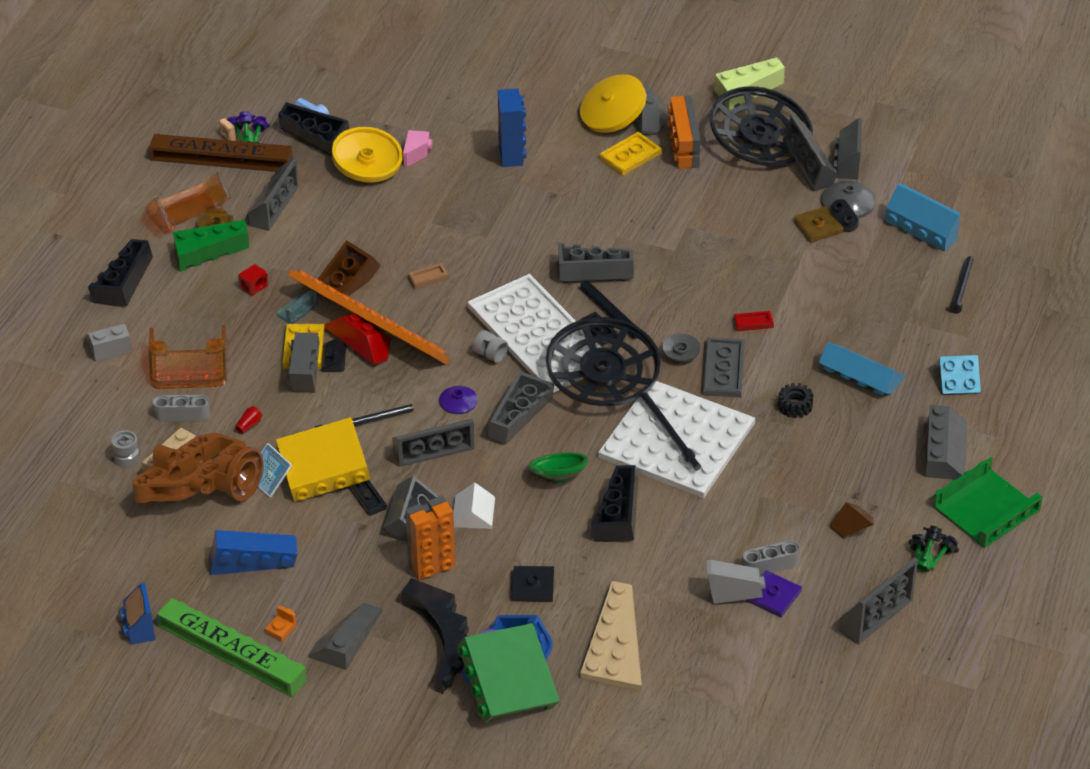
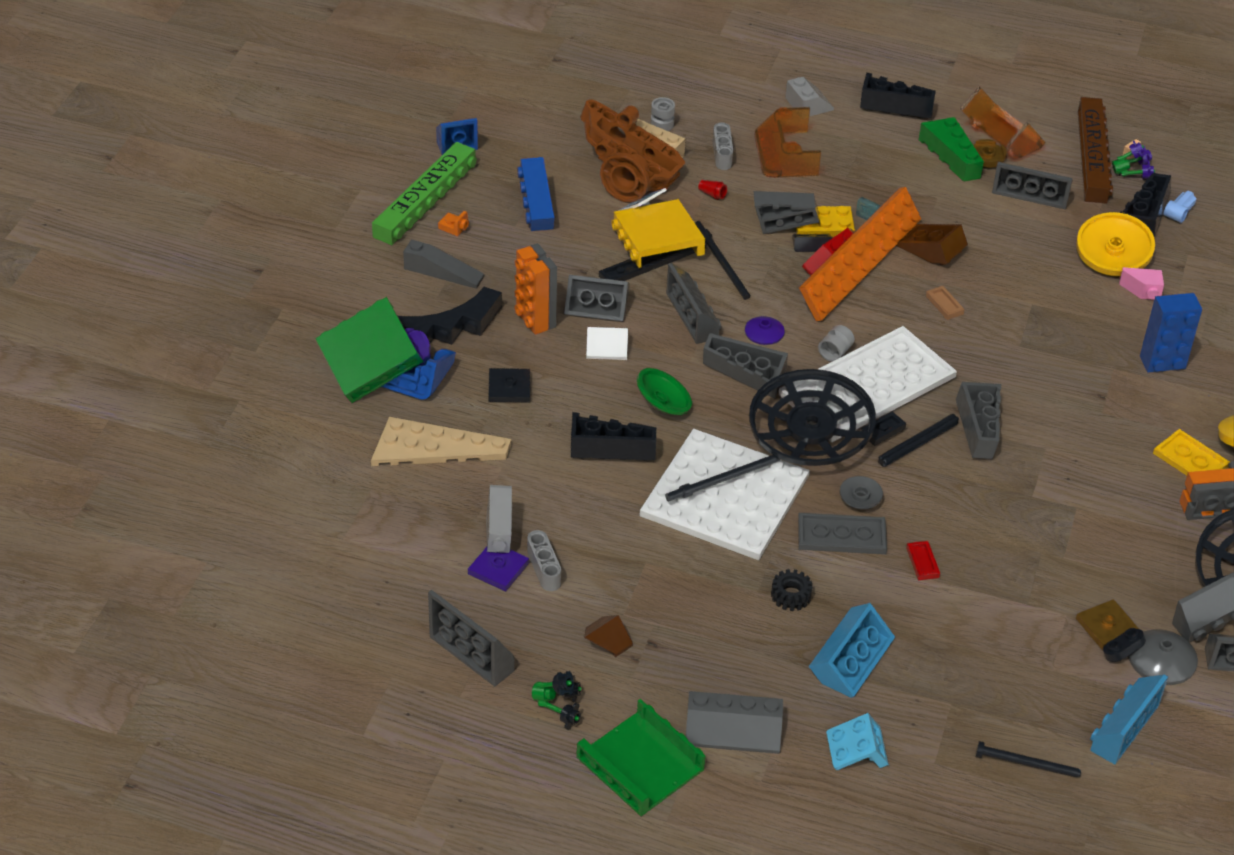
camera: 85 degrees right, 0 degrees up
(253, 280) = (909, 178): red brick -> none

